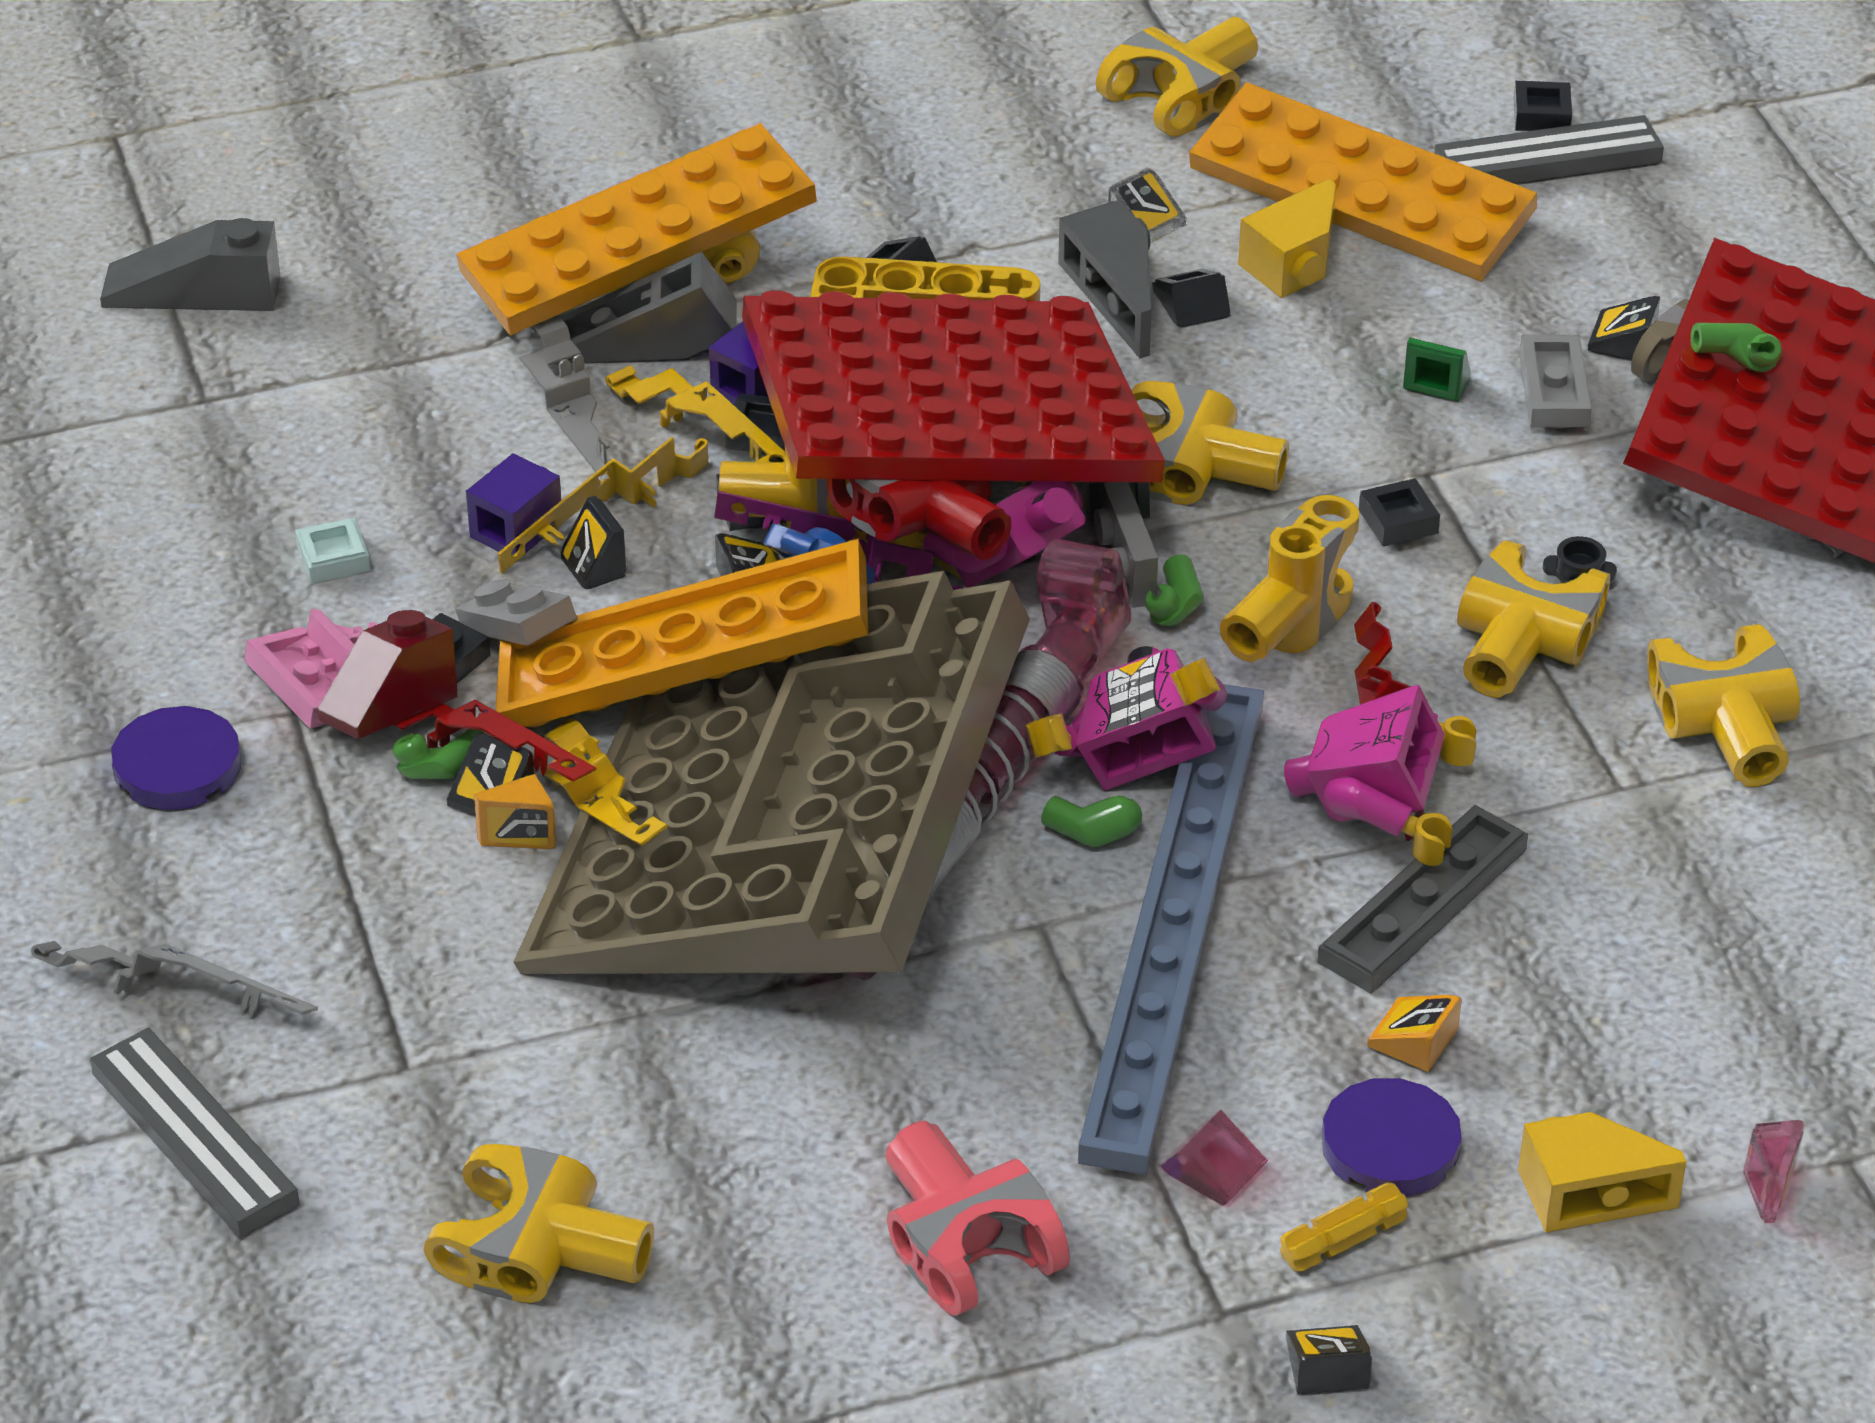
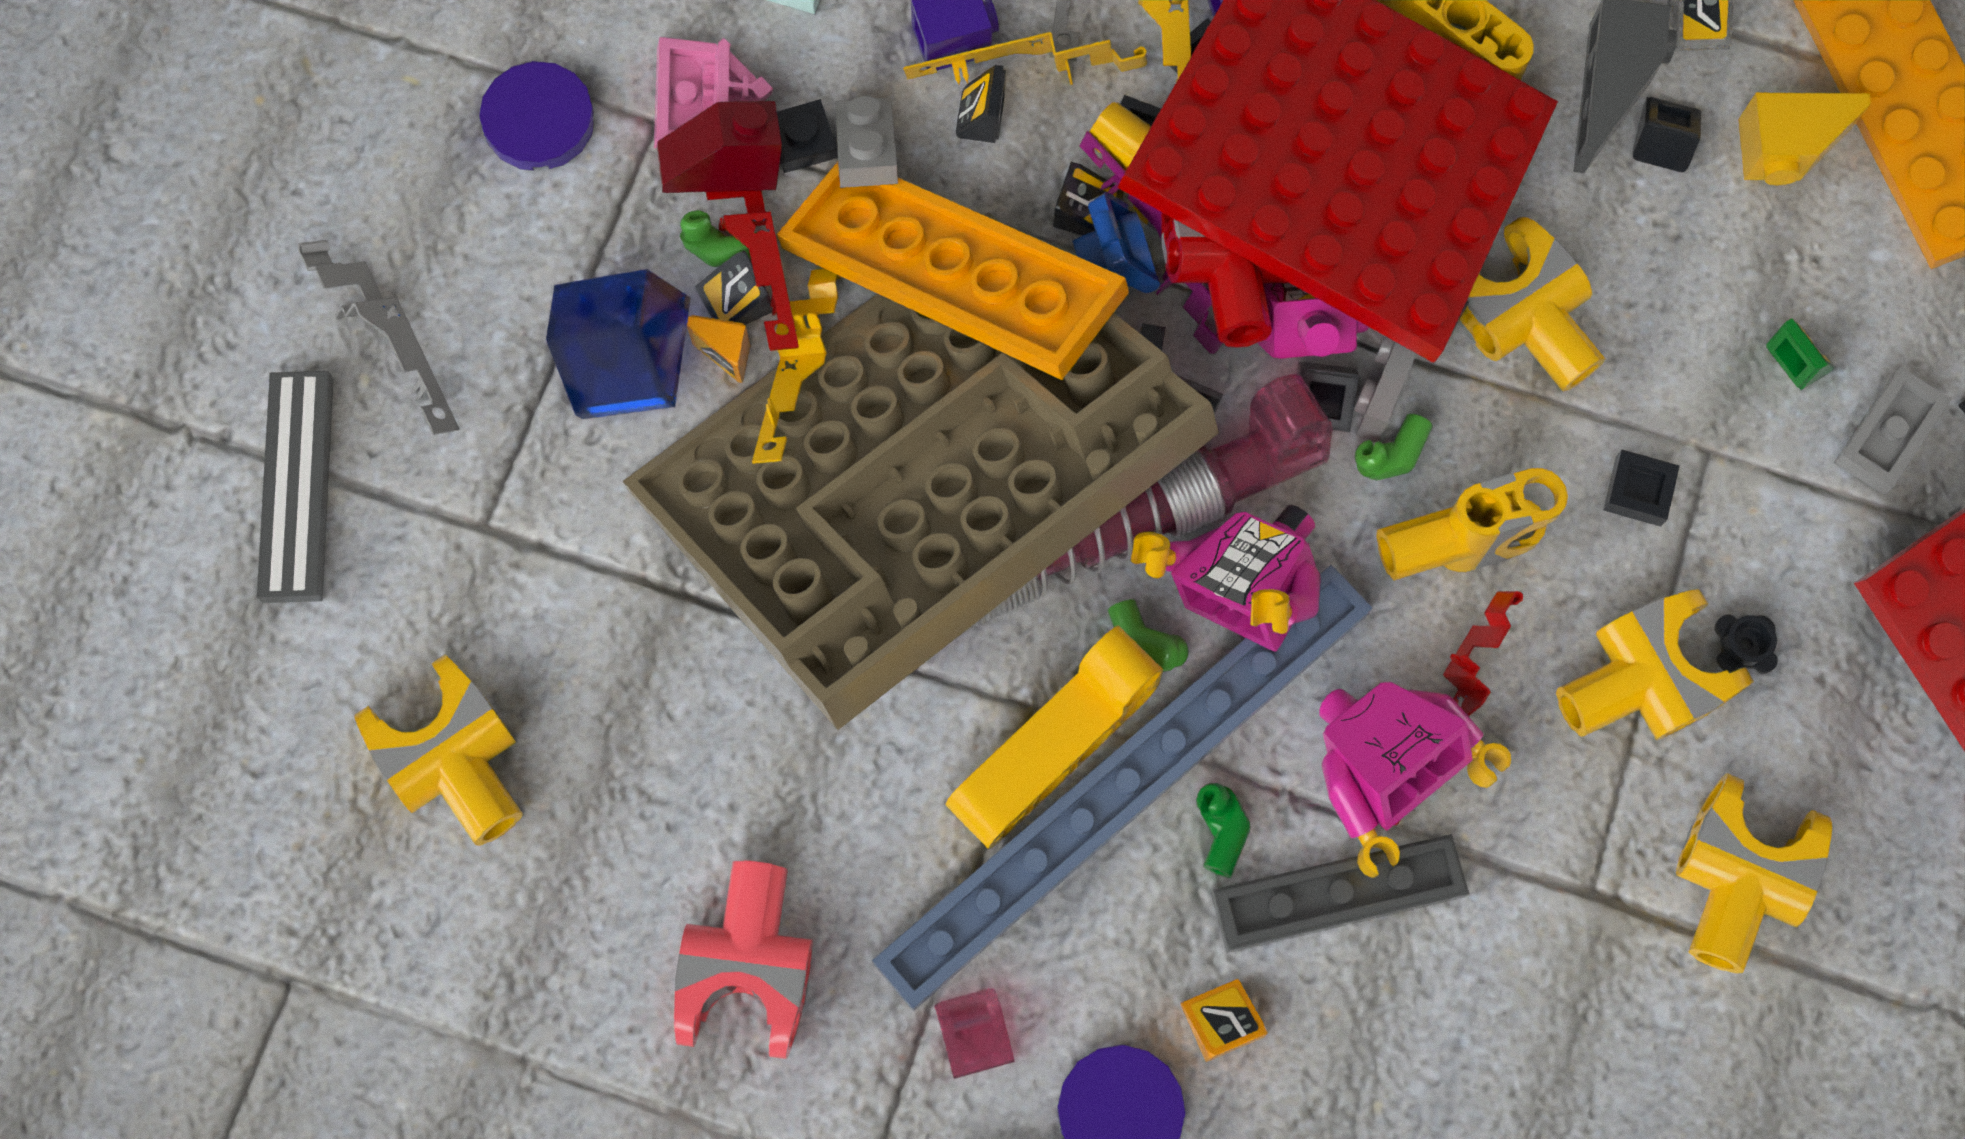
camera: 35 degrees right, 30 degrees up
(426, 846) = (618, 342): none -> clear blue slope
(1088, 902) = (1058, 738): none -> yellow beam
(1286, 901) = (1227, 824): none -> green arm

